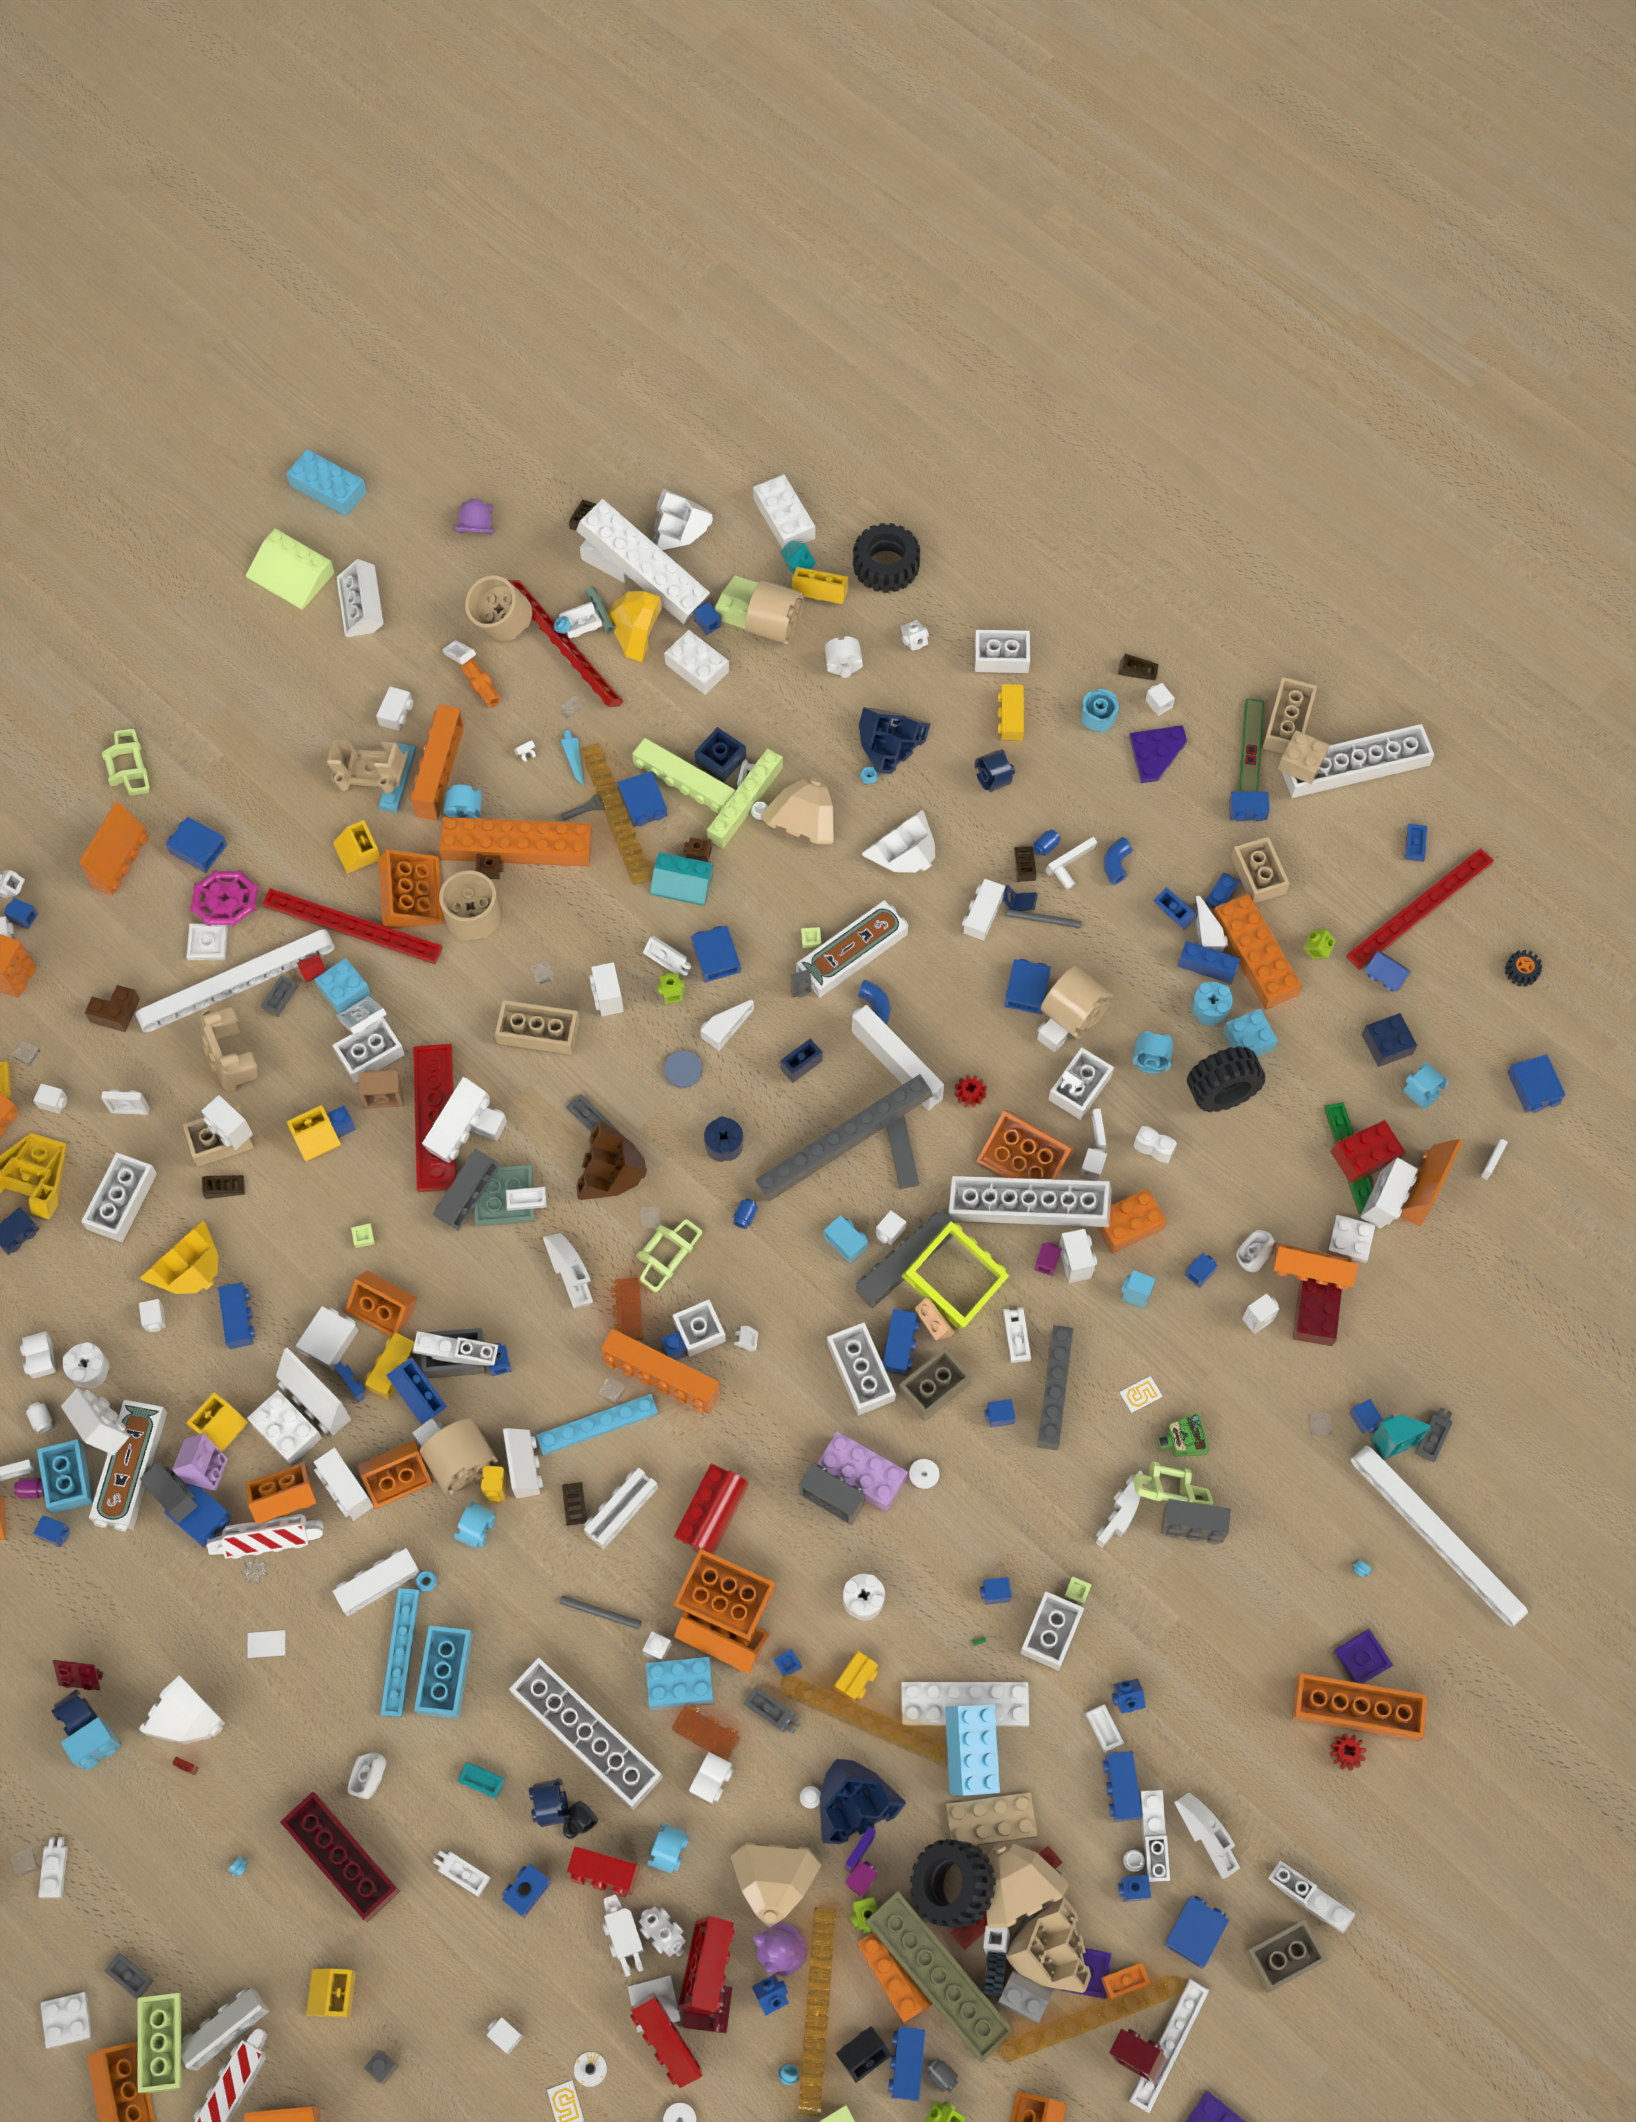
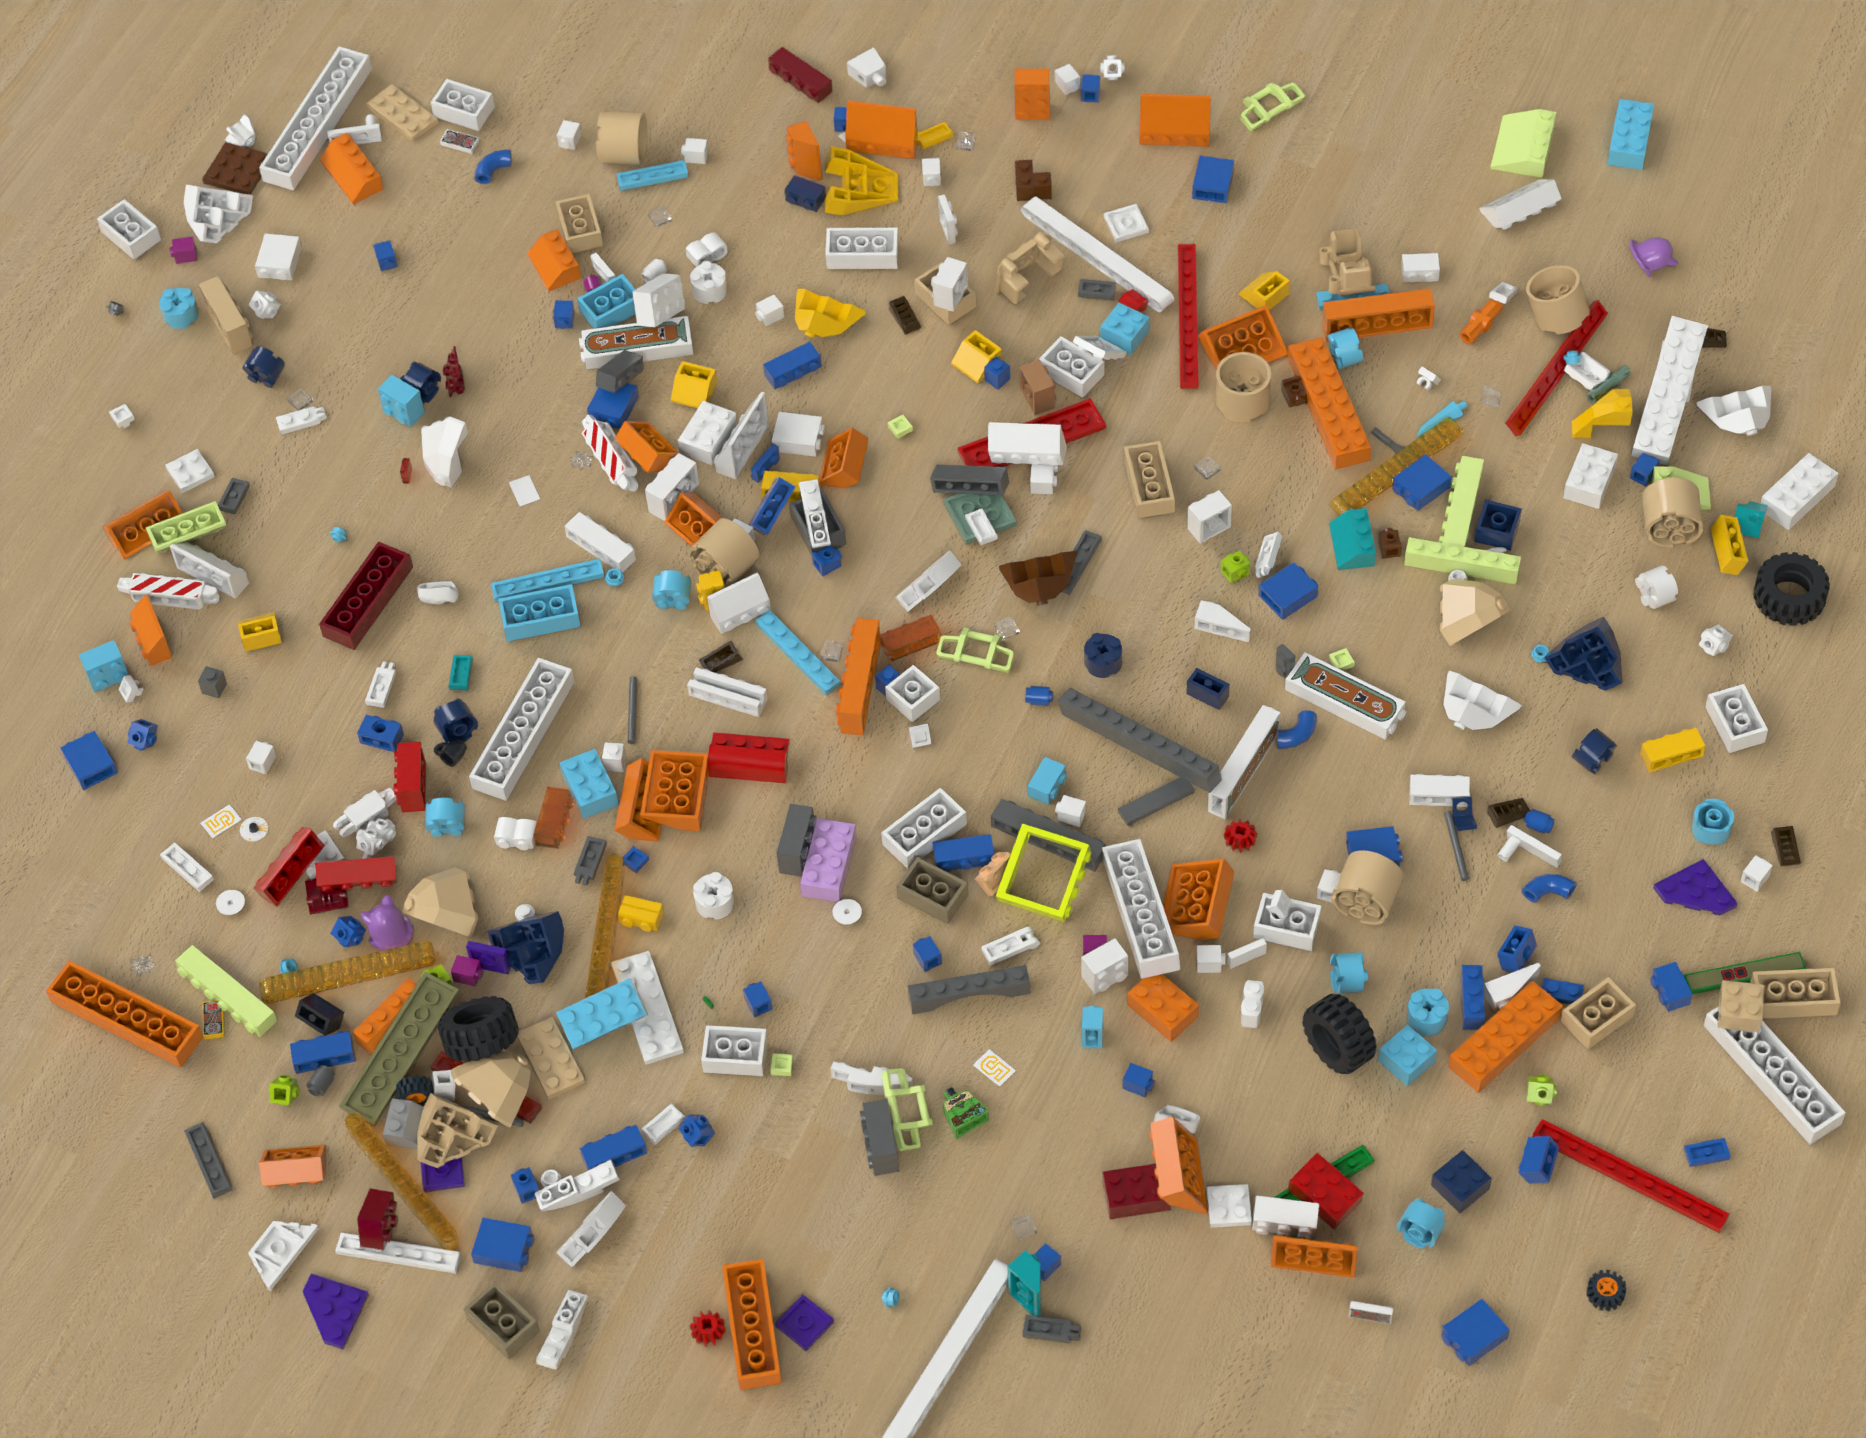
camera: 75 degrees right, 10 degrees down
(200, 1462) = (653, 385): lavender slope -> none
(224, 889) = (1175, 228): dark pink plate -> none
(683, 1069) = (1161, 605): sand blue tile -> none
(1125, 1981) = (442, 1198): orange plate -> none
(1261, 1313) = (1110, 1138): white brick -> none

